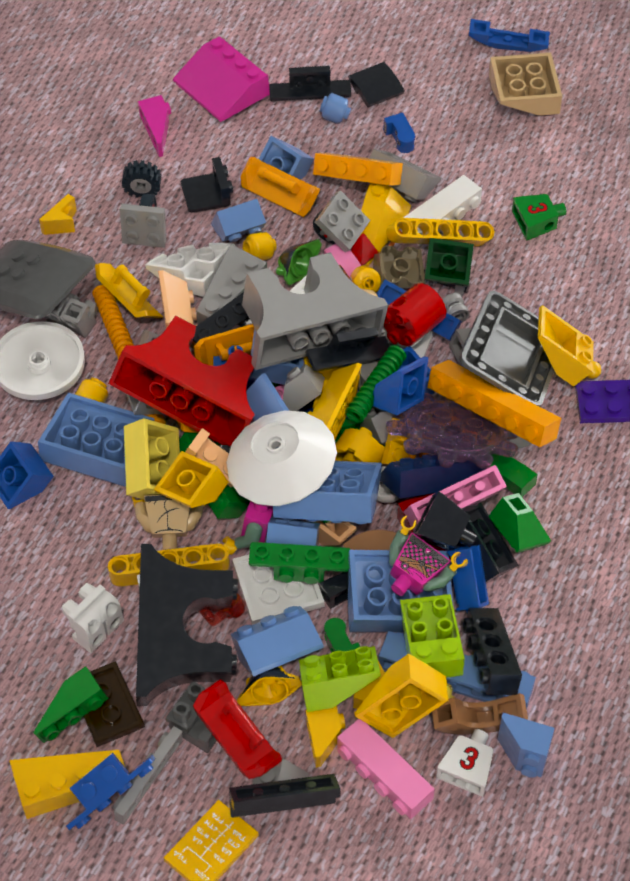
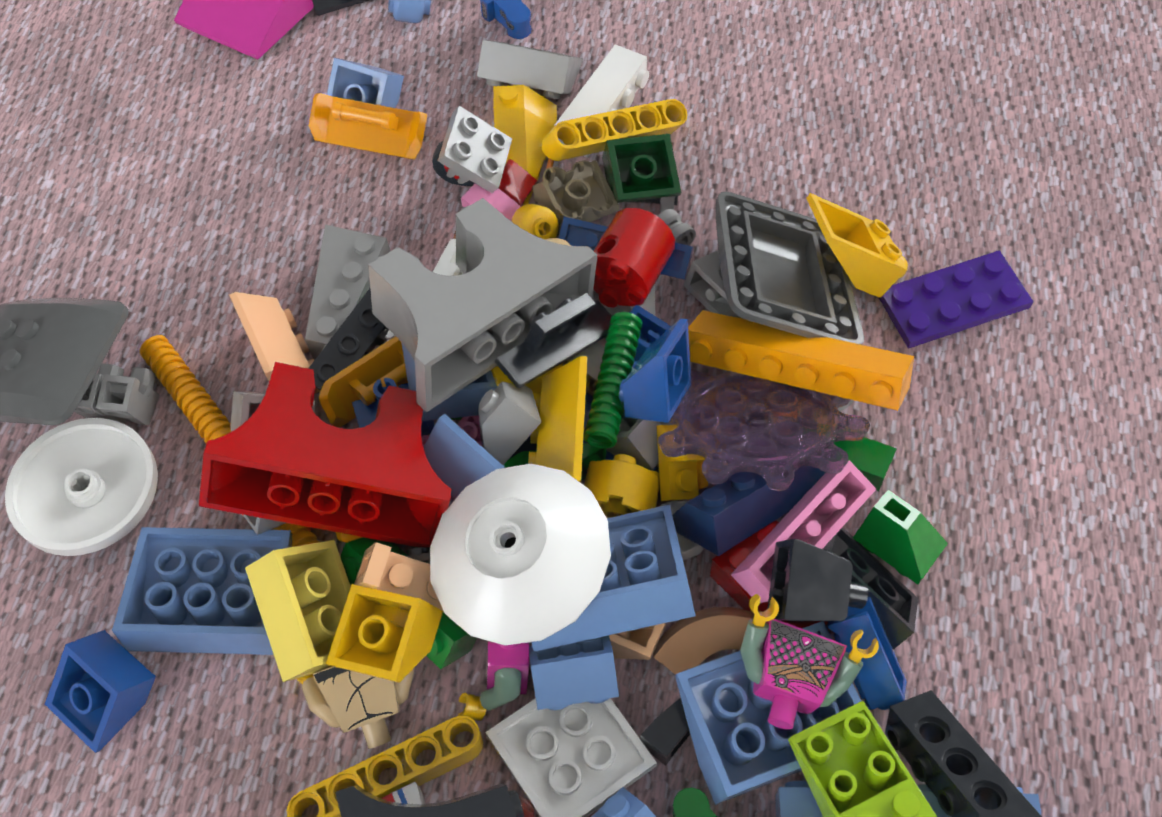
camera: 15 degrees left, 5 degrees up
(60, 217) = (61, 252): yellow slope -> none
(93, 389) = (180, 511): yellow head -> none
(126, 289) = (190, 335): yellow piece -> none
(141, 179) = (167, 166): black wheel -> none
(143, 223) = (187, 228): light grey plate -> none
(155, 117) = (164, 76): dark pink slope -> none
(192, 265) = (277, 271): white brick -> none
(208, 190) = (268, 157): black bracket -> none
(238, 221) = (326, 188): medium blue slope -> none
(260, 245) = (367, 215): yellow head -> none
(295, 260) = (429, 223): bright green hat -> none
(299, 562) = (598, 711): green bracket -> none
(358, 169) = (470, 72): light orange brick -> none
(536, 214) = (729, 73): green torso -> none

